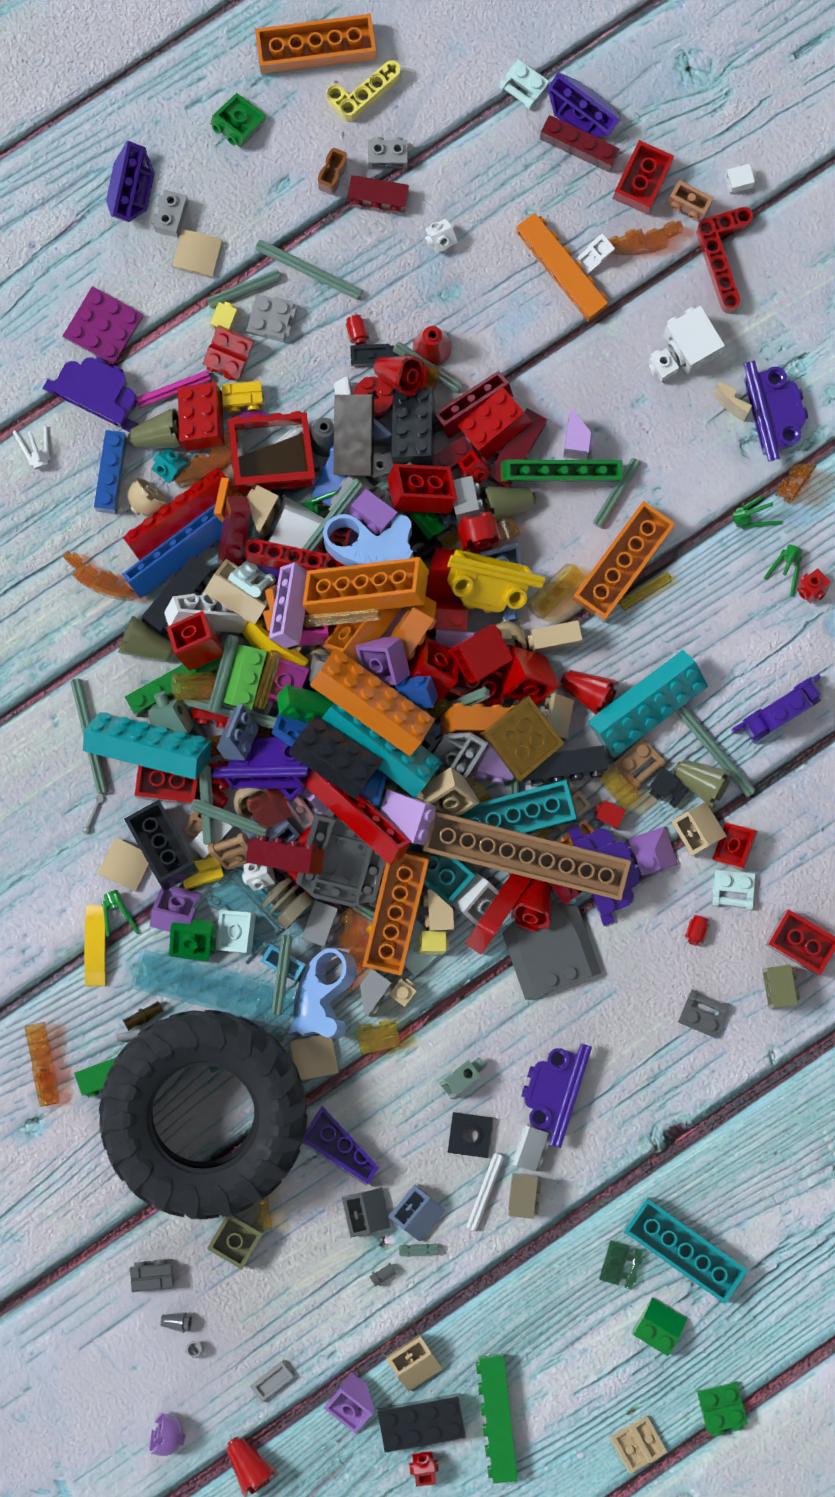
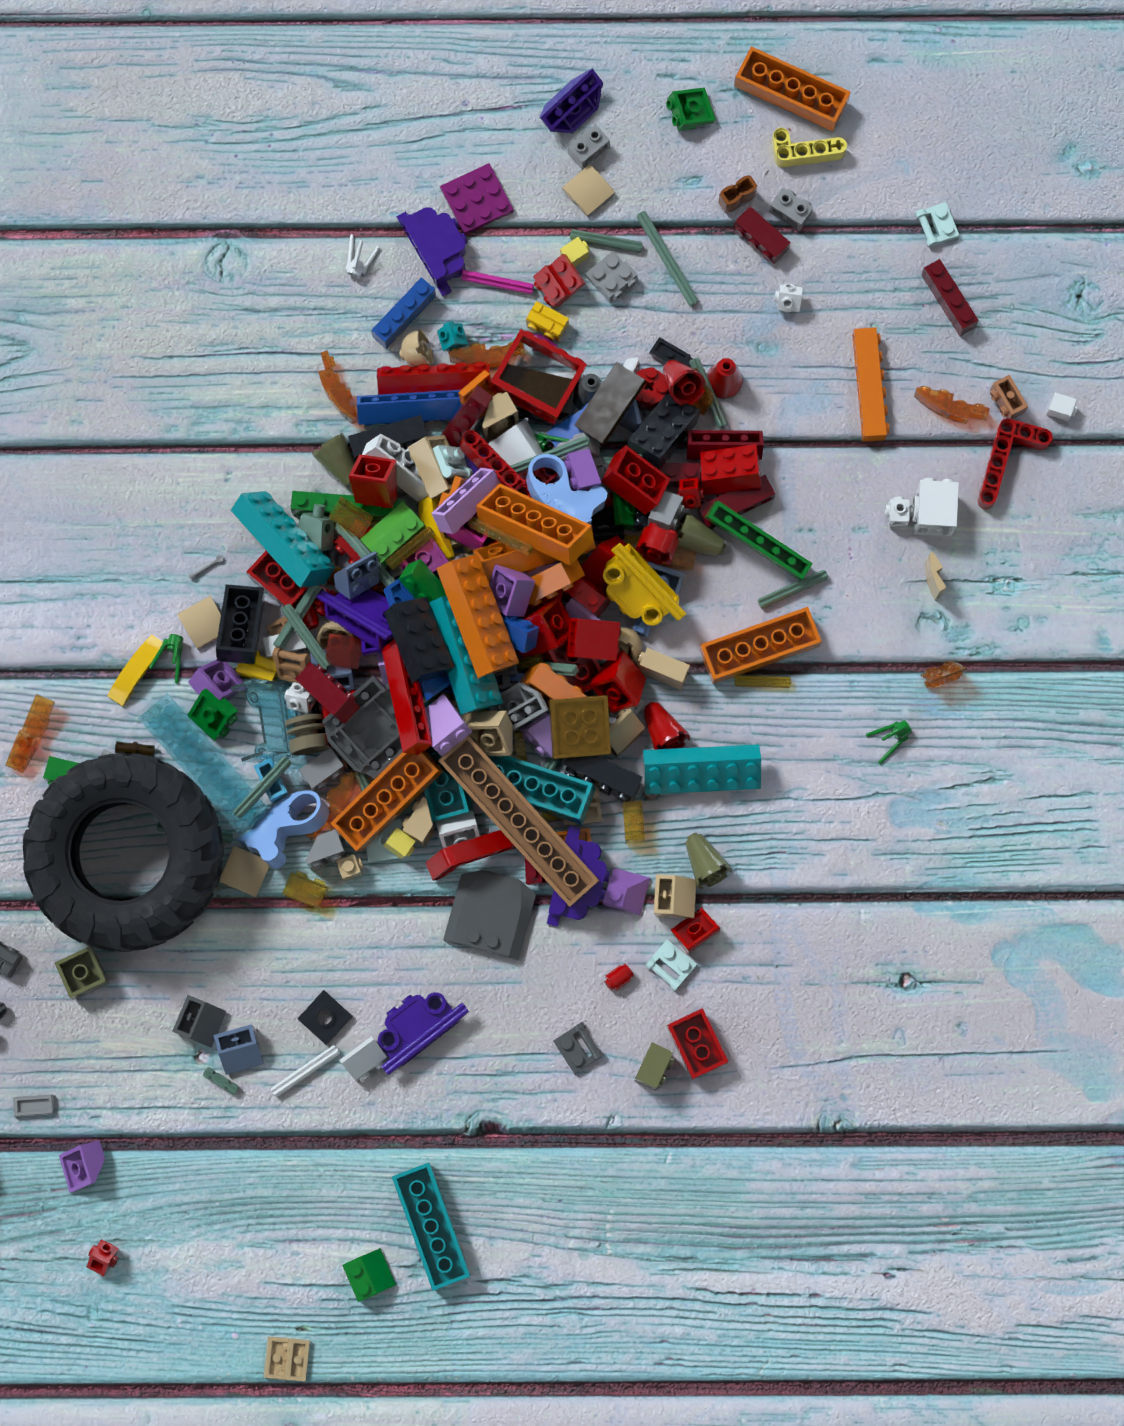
camera: 35 degrees right, 5 degrees down
(85, 720) = (252, 486): sand green axle -> none
(157, 432) = (463, 306): olive cone -> none
(200, 416) = (502, 314): red brick -> none
(223, 674) = (379, 521): sand green axle -> none
(235, 931) = (251, 731): light aqua plate -> none
(264, 1218) = (118, 971): clear yellow plate -> none
(302, 815) = (366, 670): white slope -> none
(338, 1147) = (212, 951): dark purple wedge -> none
(357, 330) = (672, 328): red brick -> none
(382, 1275) = (178, 1081): dark grey pin -> none
(383, 461) = (615, 443): white brick -> none
(414, 1362) = (153, 1167): tan slope -> none
(421, 1422) = (126, 1219): black brick -> none
(457, 1082) = (341, 967): sand green torso -> none
(498, 1418) = (189, 1258): green brick -> none
(523, 1196) = (332, 1093): dark tan brick -> none
(534, 906) = (499, 868): red cone -> none
(555, 590) = (689, 632): clear yellow brick -> none
(578, 438) = (788, 524): lavender slope -> none
(581, 106) = (970, 269): dark purple wedge -> none
(595, 254) = (903, 391): white slope -> none
(609, 814) = (611, 837): red brick -> none
(614, 1264) = (369, 1199): clear green plate -> none
(635, 758) = (663, 808): medium nougat plate -> none
(643, 177) = (983, 355): red brick -> none
(664, 785) = (671, 844): black brick -> none
(715, 750) = (732, 845): sand green axle -> none
(722, 1408) = (374, 1377): green plate -> none
(742, 516) = (881, 674): green plant -> none
(775, 408) = (966, 605): dark purple brick -> none
(781, 711) = (807, 848): dark purple brick -> none
(813, 586) = (901, 765): red brick -> none

